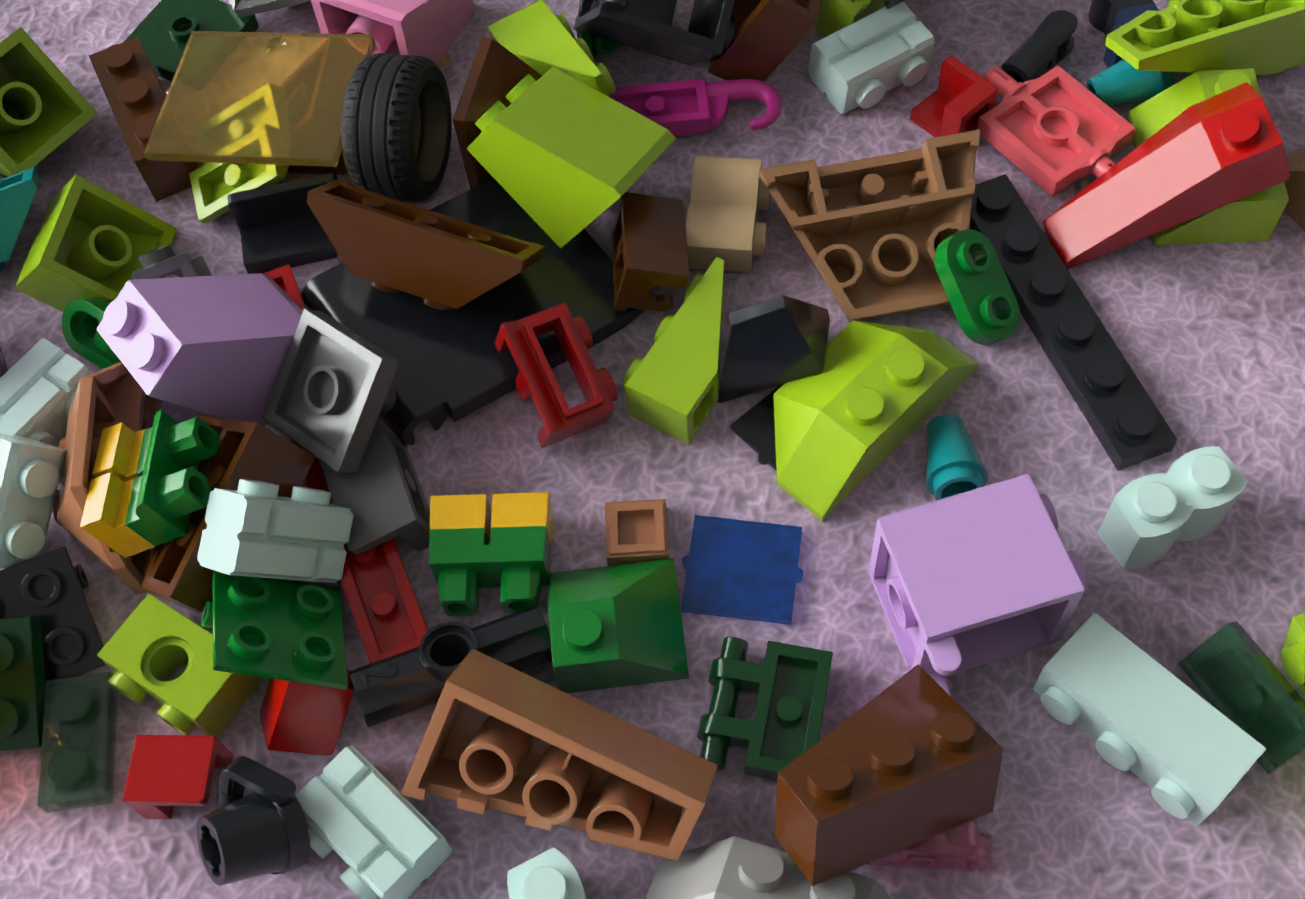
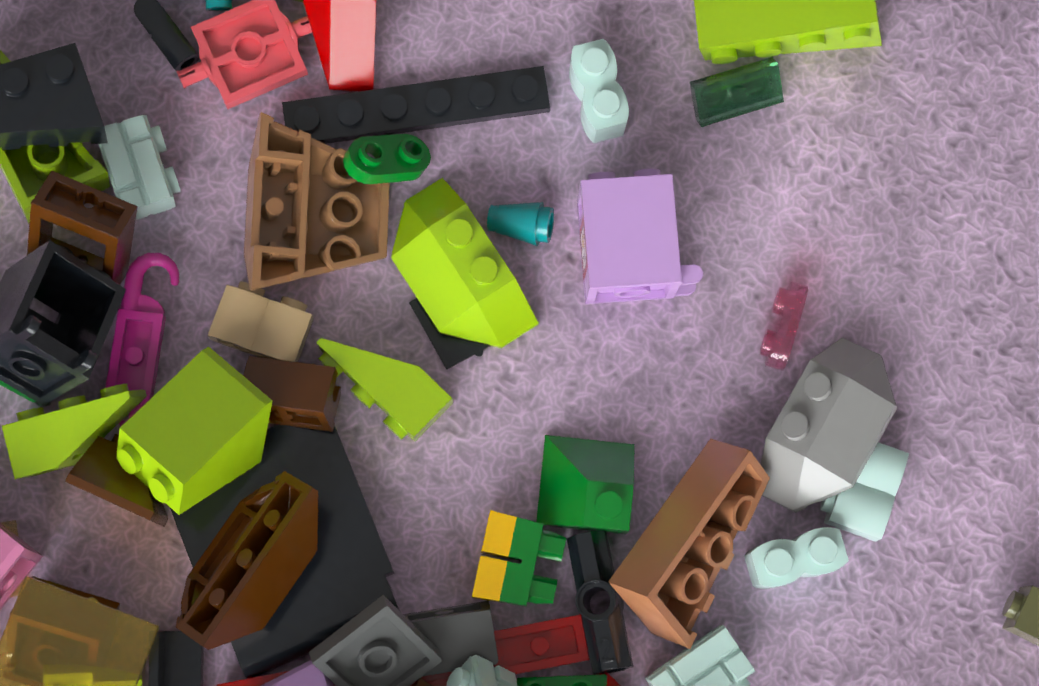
camera: 90 degrees left, 20 degrees up
(397, 126) = (119, 571): black tyre -> none
(539, 383) = (389, 501): red window -> none
(636, 531) = (518, 456): nougat tile -> none
(742, 569) = (563, 389): clear blue piece -> none
(773, 345) = (403, 314): black slope -> none
(787, 708) = (680, 386): dark green plate -> none
(886, 780) = (755, 333): reddish brown wedge -> none
(957, 102) = (202, 119): red panel -> none
(1146, 720) = (738, 163): light aqua brick -> none

